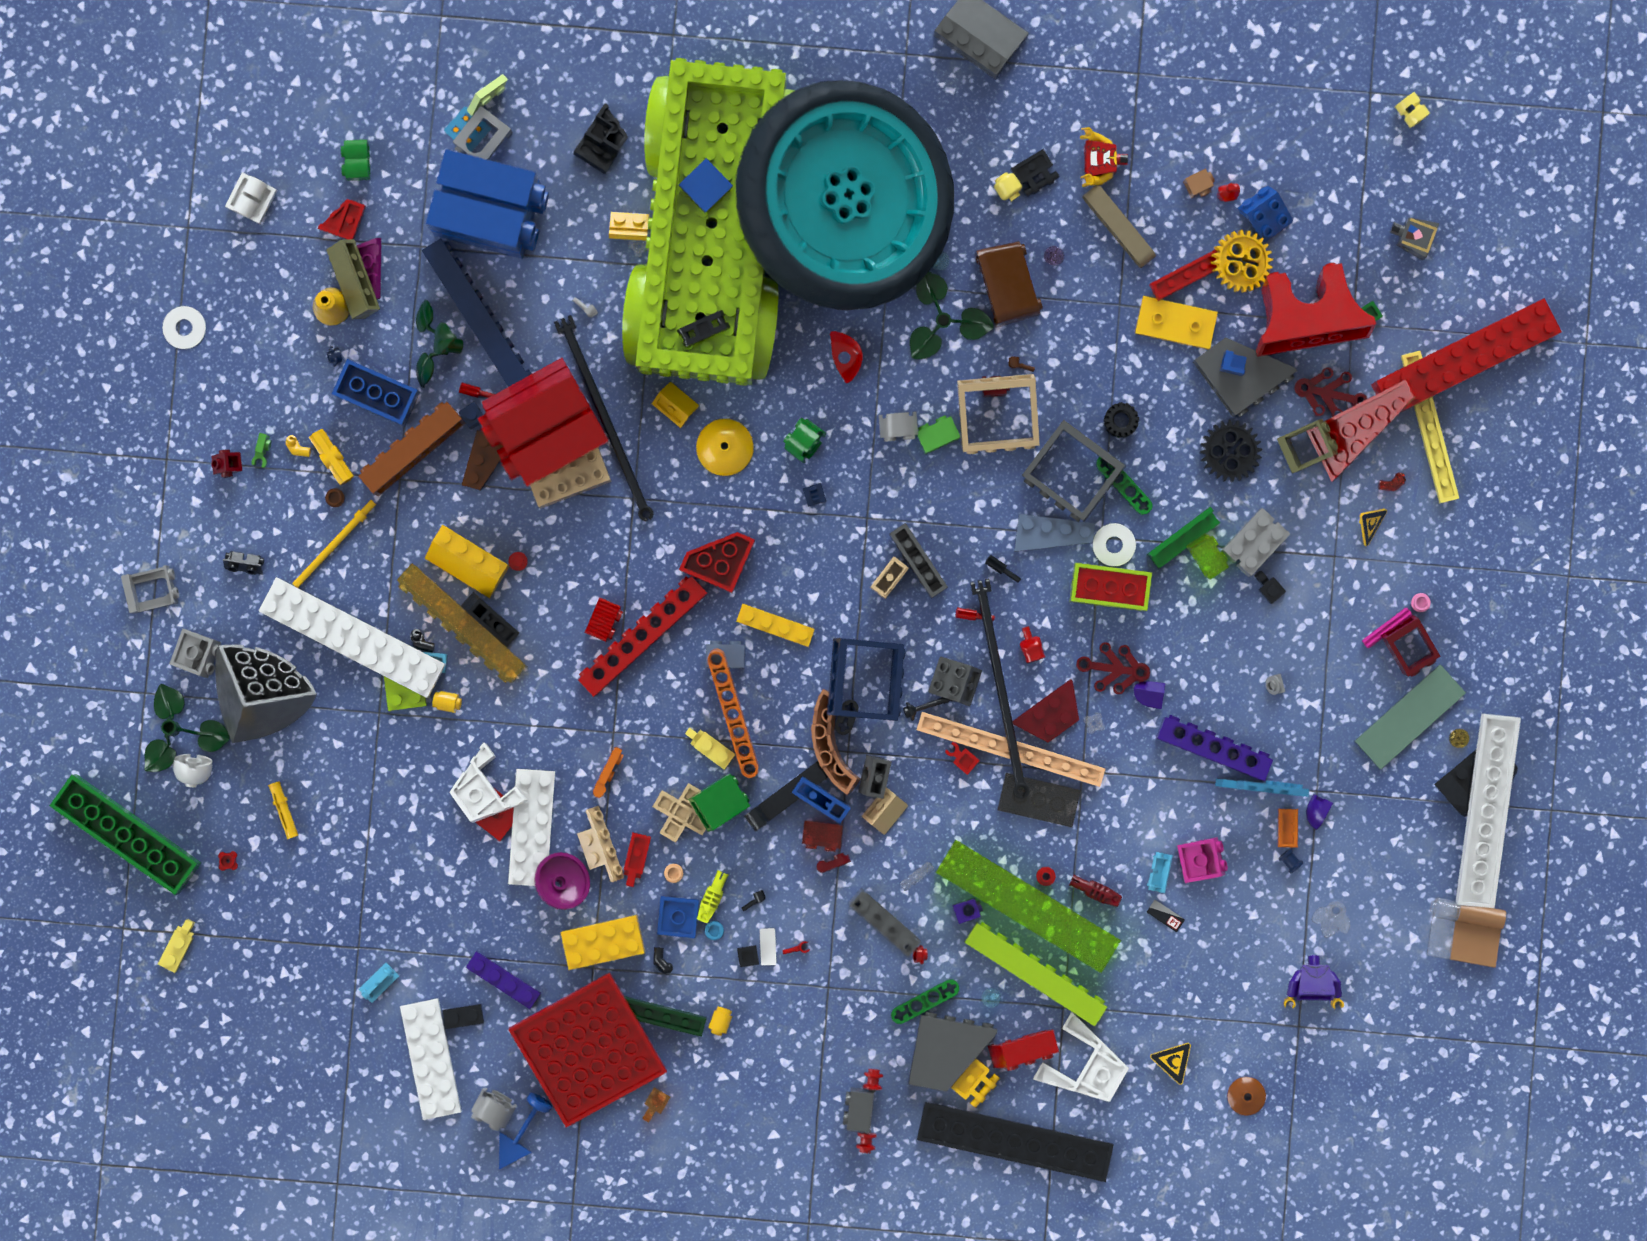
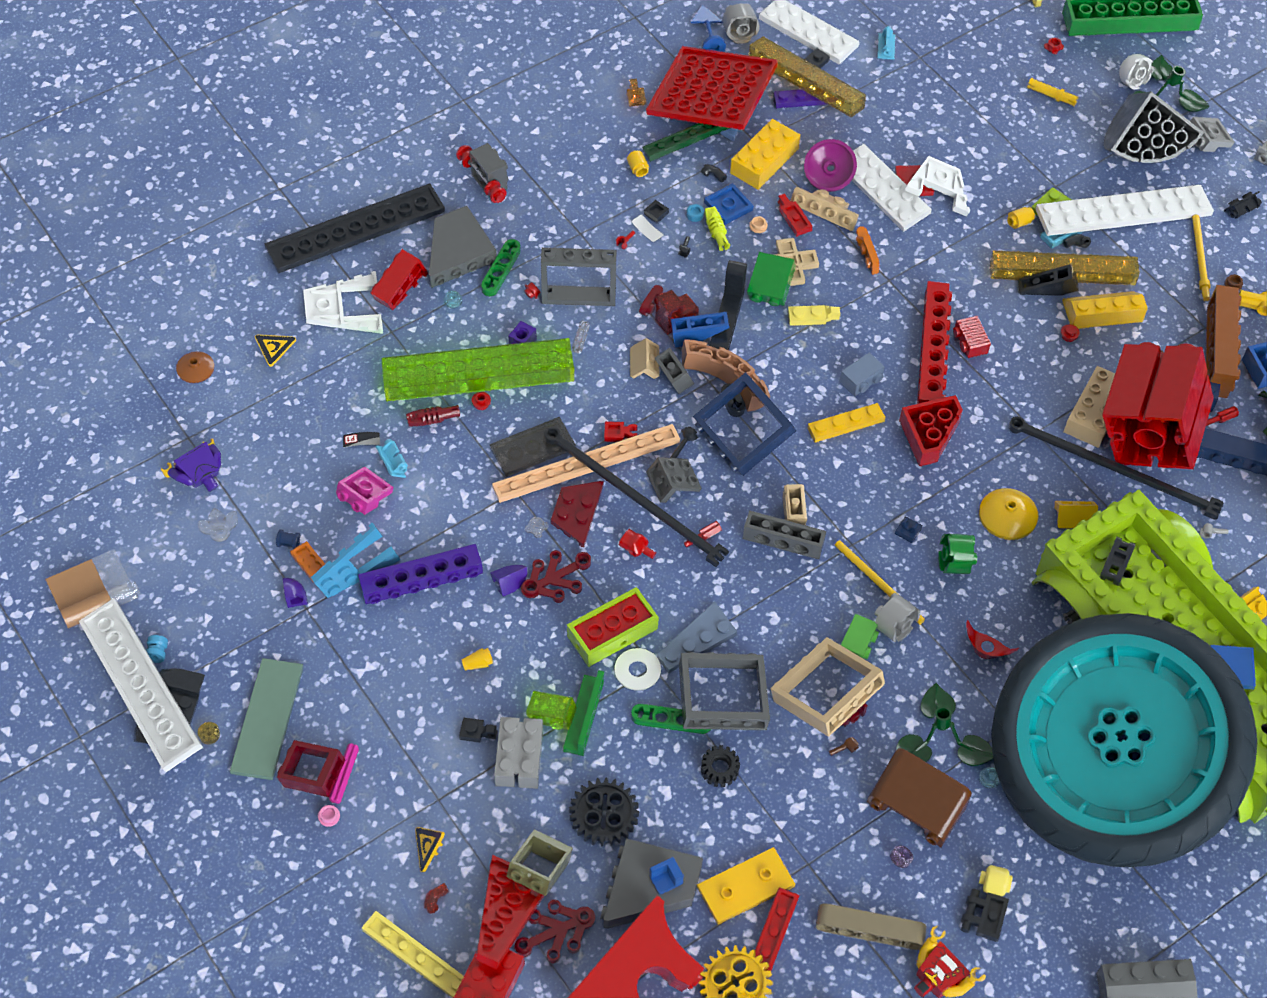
camera: 140 degrees right, 30 degrees down
(492, 996) = (810, 77): none -> clear yellow brick
(732, 723) = (820, 337): orange beam -> none
(875, 432) = (868, 572): none -> yellow bar
(971, 1078) = (422, 241): yellow plate -> none
(1001, 568) = (714, 582): black axle -> none
(1037, 975) = (432, 333): lime brick -> none
(1226, 642) = (479, 659): none -> yellow cone
(1275, 684) = (407, 659): light grey plate -> none
(1452, 838) = (156, 647): none -> dark azure wheel

